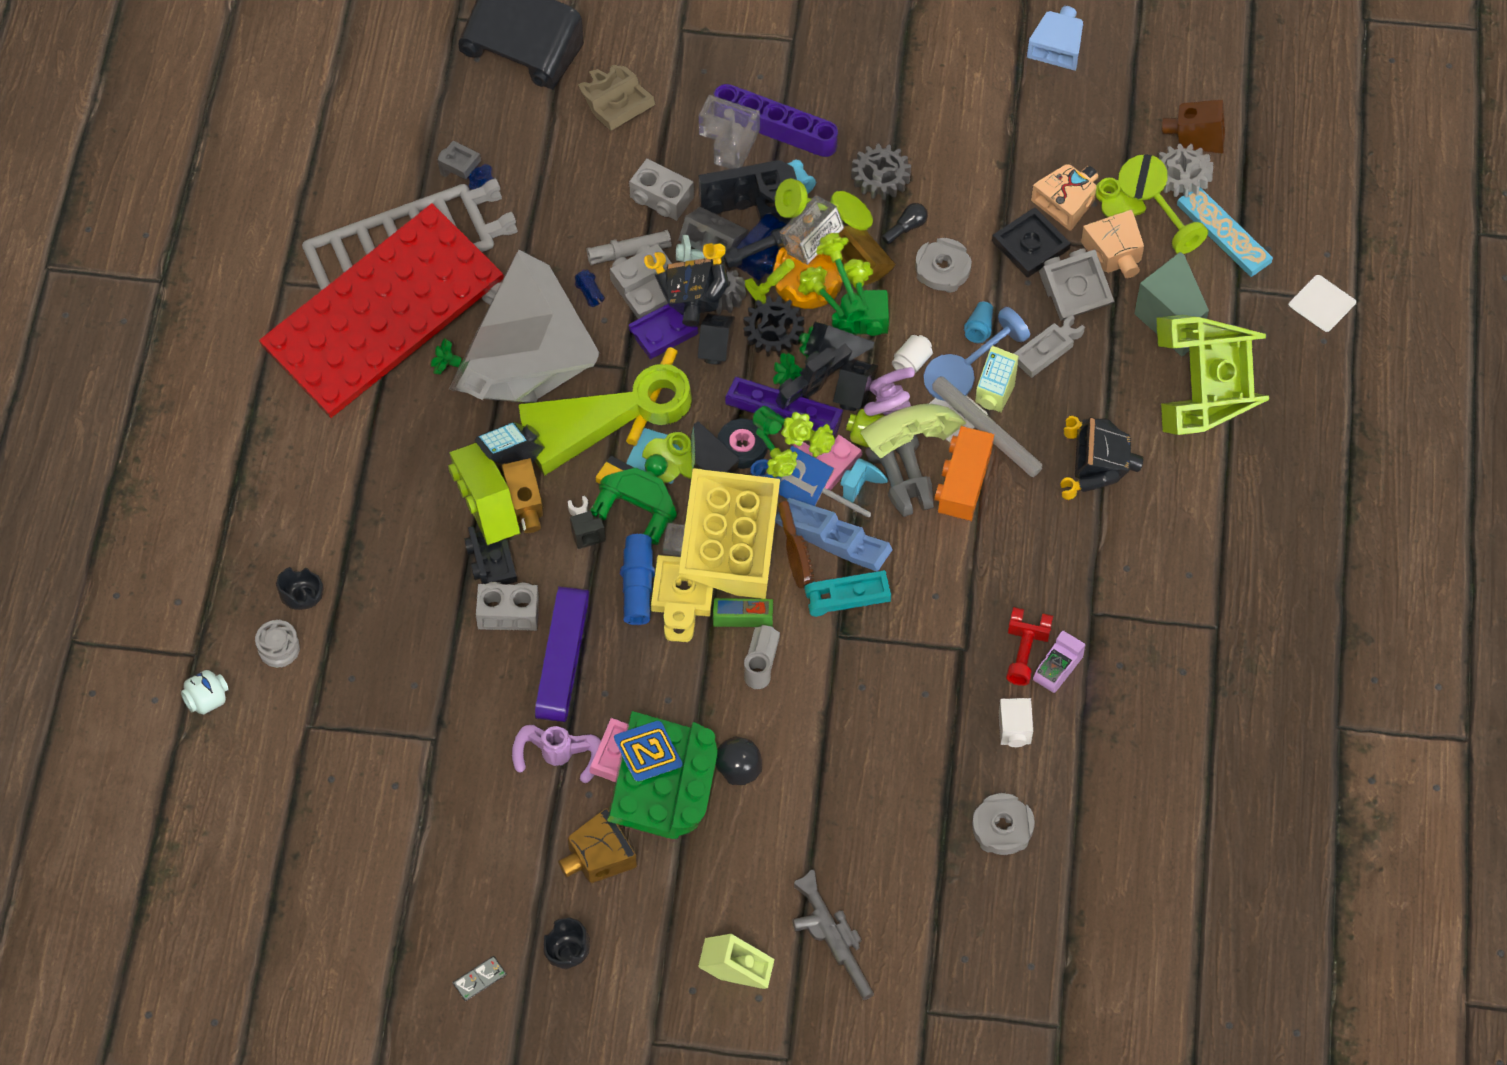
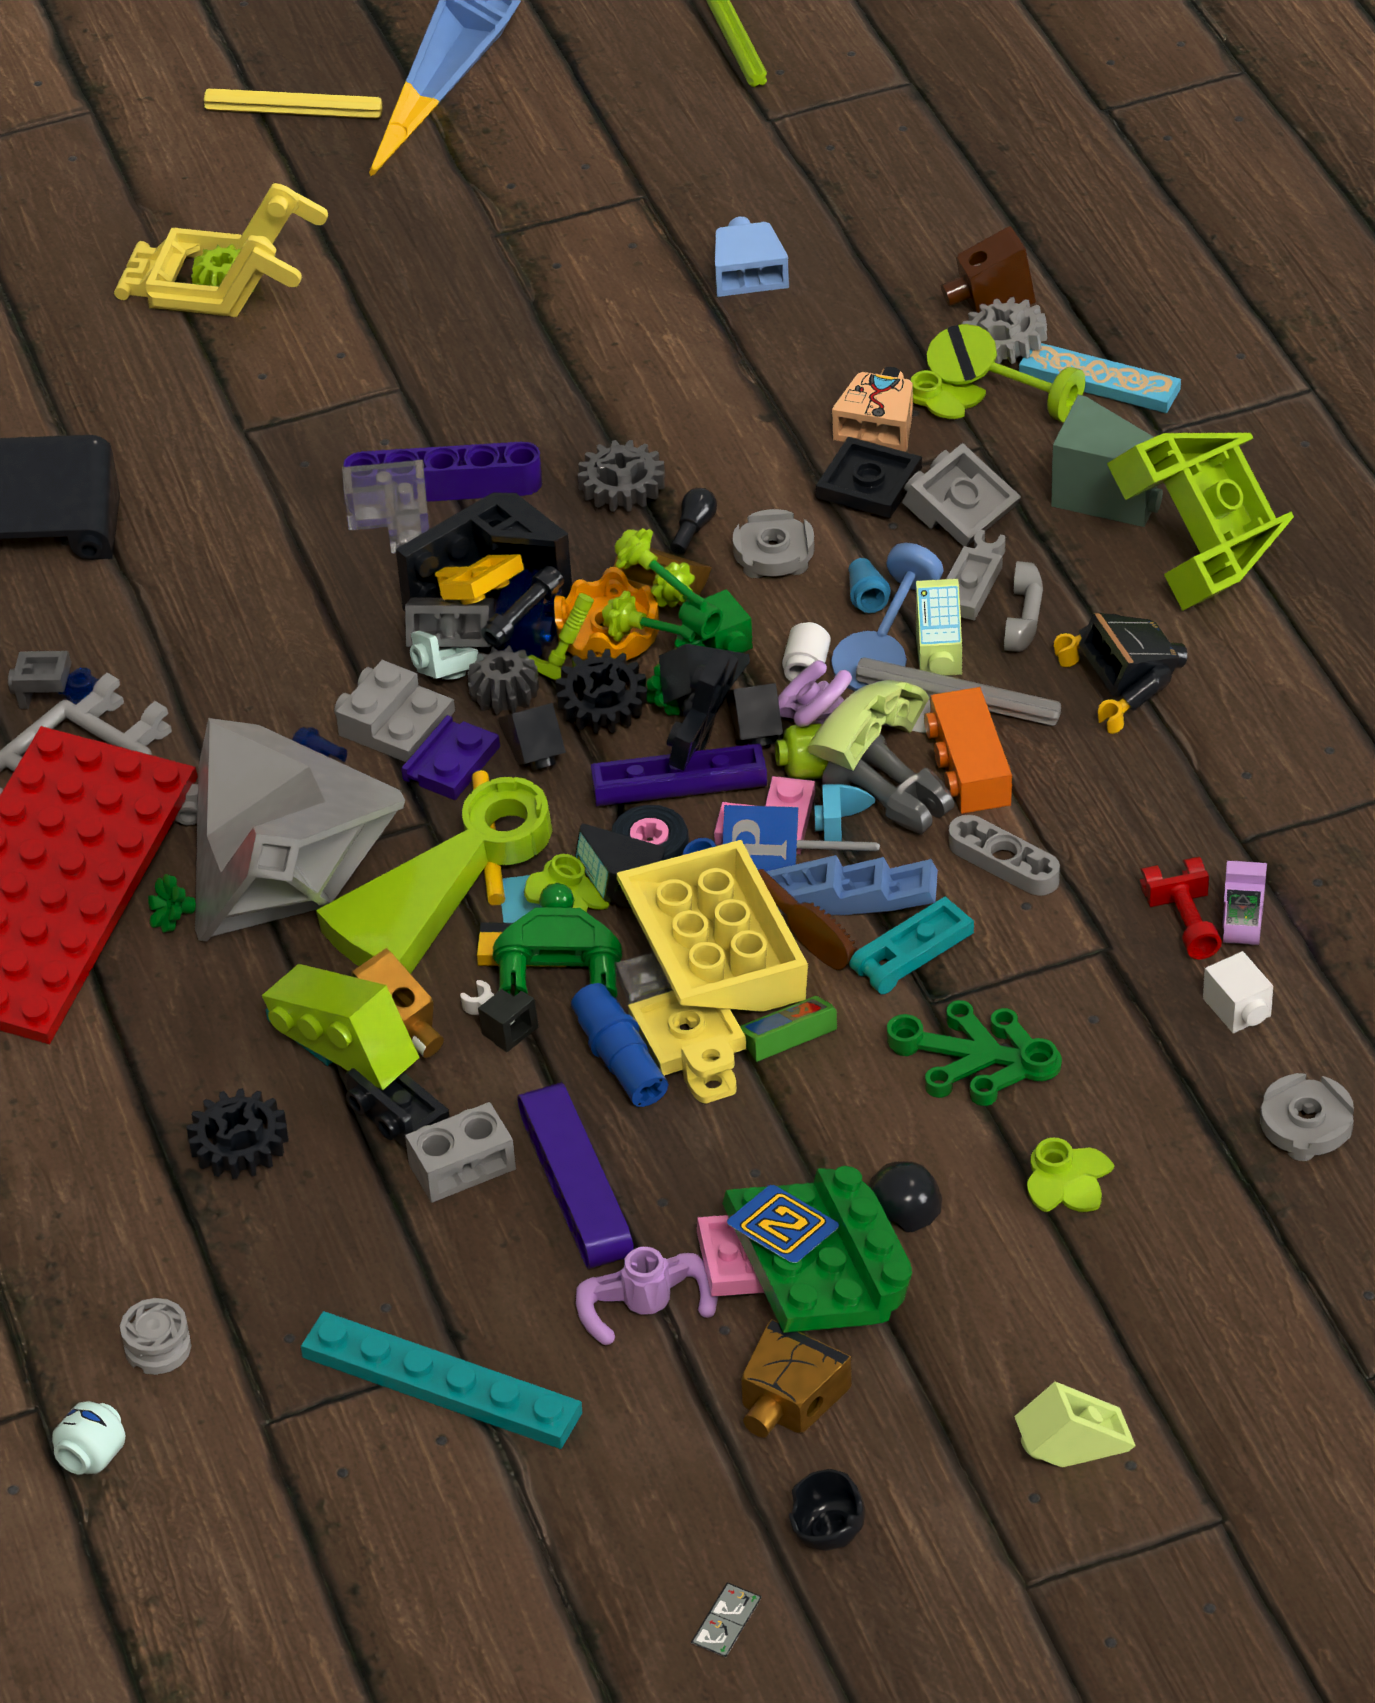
camera: 25 degrees left, 15 degrees down
(299, 589) = (146, 1255): black hair -> none
(393, 533) = (237, 1133): none -> black gear
(415, 749) = (442, 1379): none -> teal plate
(510, 443) = (342, 946): black slope -> none
(615, 96) = (207, 527): dark tan plate -> none
(626, 248) = (327, 691): light grey pin -> none
(663, 185) = (342, 603): light grey brick -> none
(692, 285) = (470, 676): black torso -> none
(735, 217) = (472, 582): none -> yellow hinge
(761, 656) = (850, 1063): light grey piece -> none
(786, 369) = (652, 732): green plant -> none
(792, 200) = (545, 520): lime piece -> none
(796, 430) = (742, 769): lime plant -> none
(804, 232) = (586, 552): clear brick -> none
(838, 937) = (1185, 1341): flat silver piece -> none
(839, 799) = (1066, 1176): none -> lime plate
(841, 685) = (1030, 1059): none -> green plant
(942, 568) = (1036, 877): none -> light grey beam
(1049, 401) = (1021, 631): none -> light grey bar
(1115, 242) = (983, 428): light nougat torso -> none
(1322, 303) = (1273, 406): white sticker -> none

